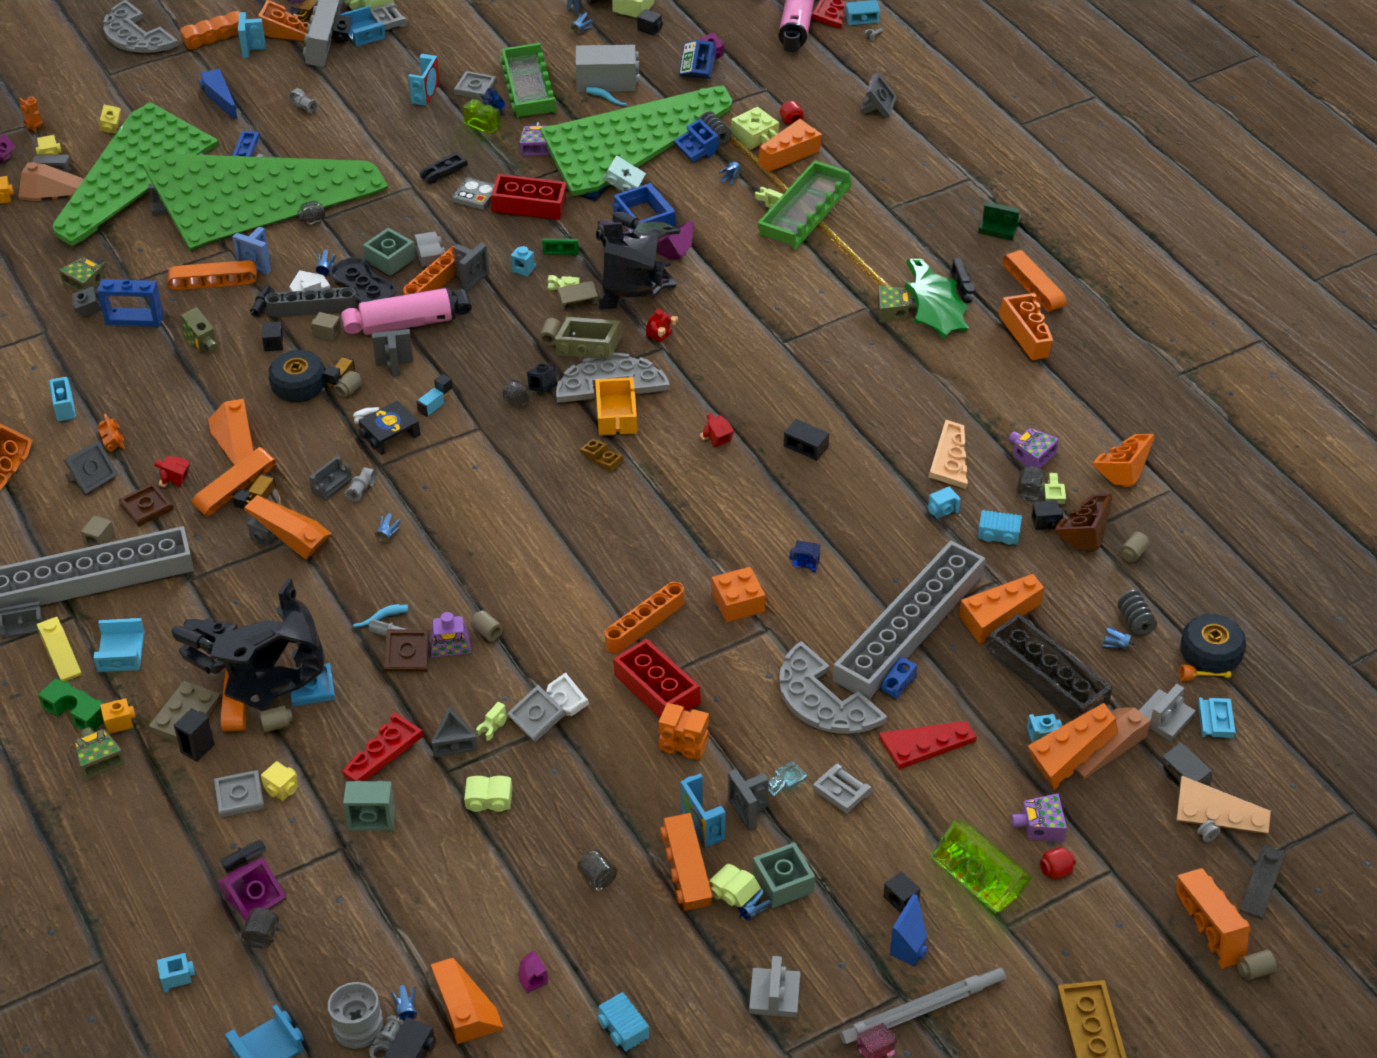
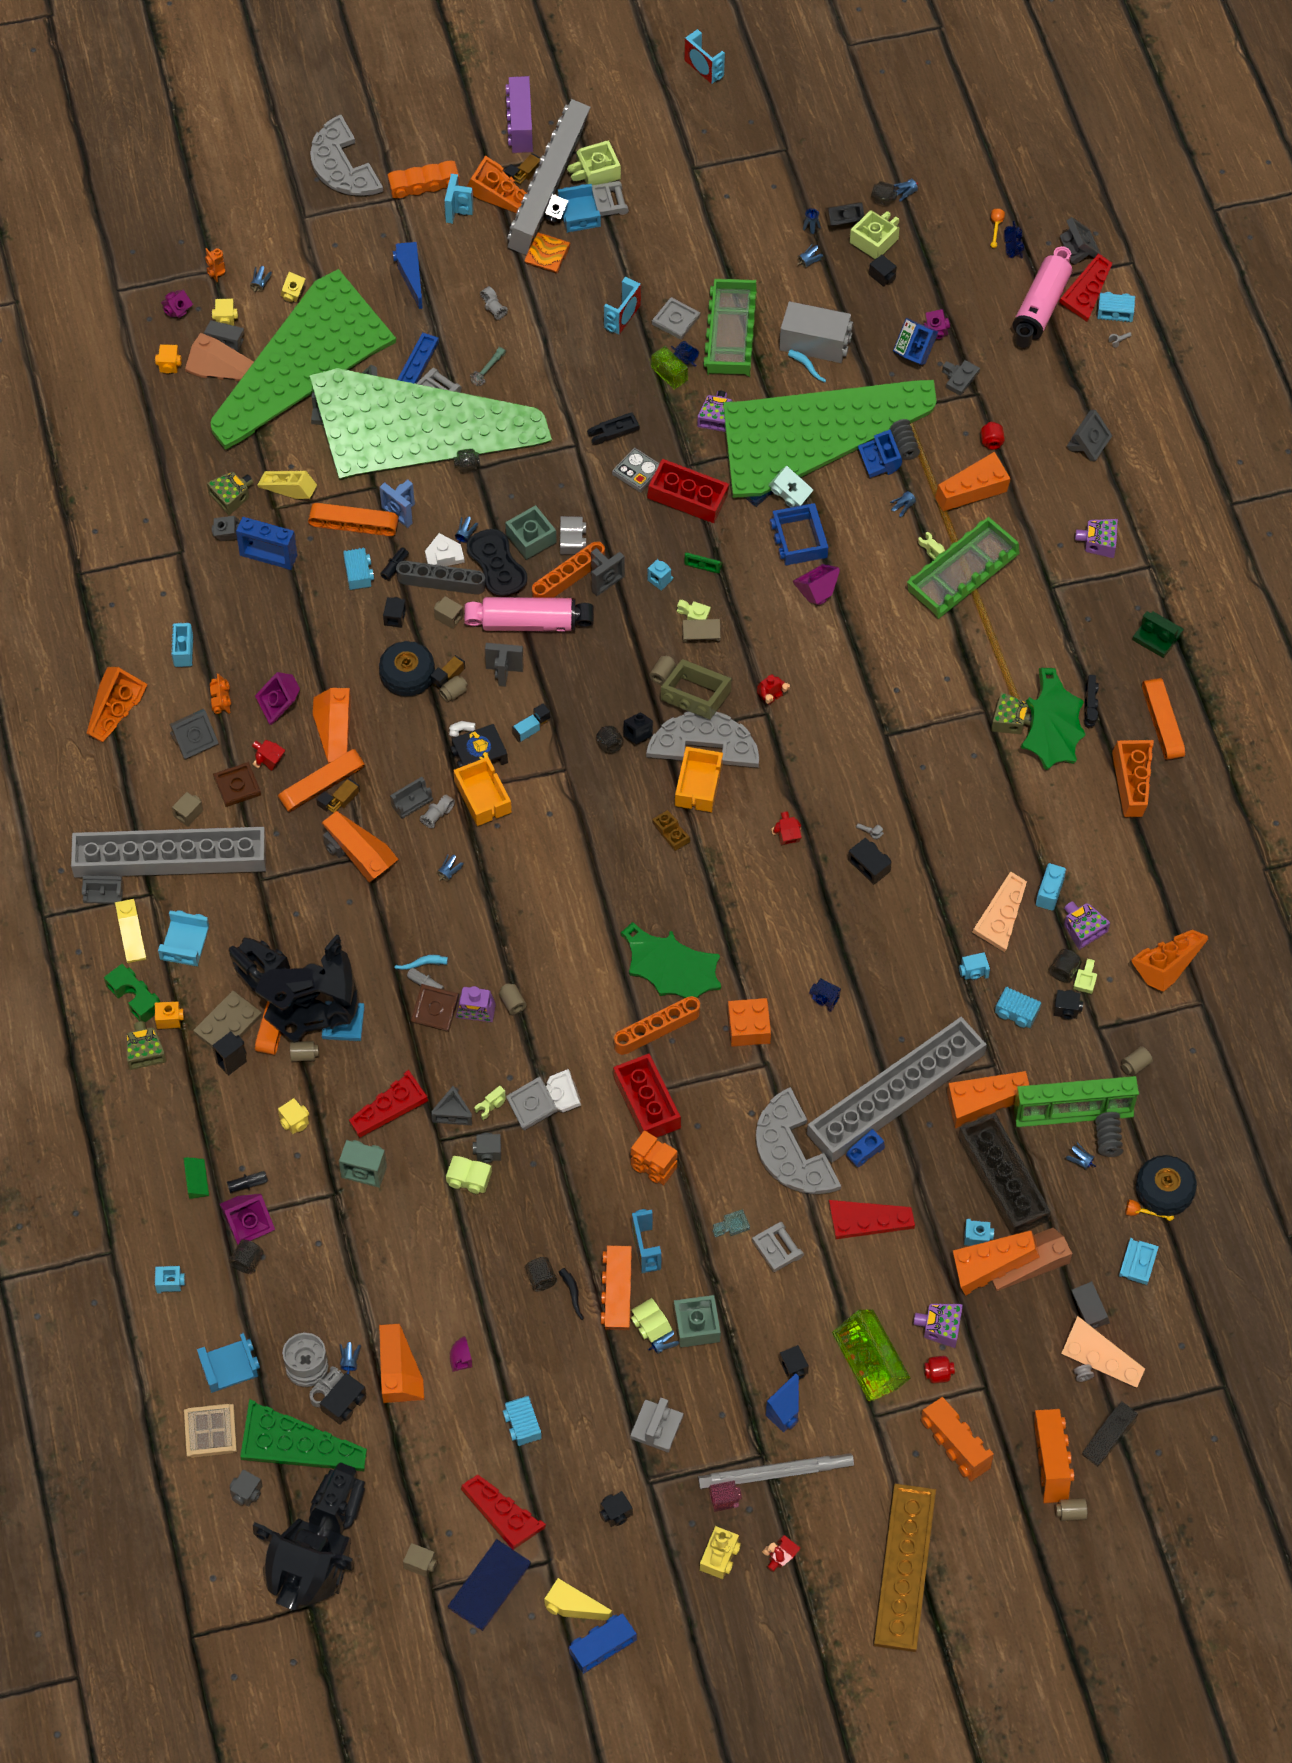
camera: 15 degrees right, 15 degrees up
(76, 124) = (258, 284): none -> flat silver piece
(142, 259) = (288, 483): none -> light yellow slope
(169, 422) = (277, 695): none -> magenta slope
(183, 865) = (196, 1177): none -> green slope
(198, 331) = (325, 592): olive torso -> none
(226, 310) = (357, 568): none -> medium azure brick
(239, 793) = (257, 1118): light grey tile -> none
(305, 152) = (477, 377): none -> piece
(342, 61) = (547, 252): none -> slope
(402, 457) = (479, 792): none -> light orange piece
(502, 762) = (488, 1147): none -> dark grey brick
(631, 258) = (759, 611): black piece -> none
(634, 874) = (572, 1285): none -> black animal
(639, 564) = (670, 964): none -> green animal
(745, 81) = (960, 376): none -> dark grey hinge
(748, 796) = (690, 1238): dark grey bracket -> none
(754, 127) = (946, 450): yellowish green hinge -> none
(802, 416) = (875, 833): none -> light grey hand
(918, 164) = (1099, 537): none -> medium lavender torso
(989, 424) = (1050, 887): none -> medium azure brick
(1088, 524) = (1101, 1025): reddish brown wedge -> none
(1090, 588) = (1074, 1101): none -> bright green window
(1108, 924) = (957, 1439): none -> orange wedge
(1168, 712) = (1095, 1245): light grey bracket -> none

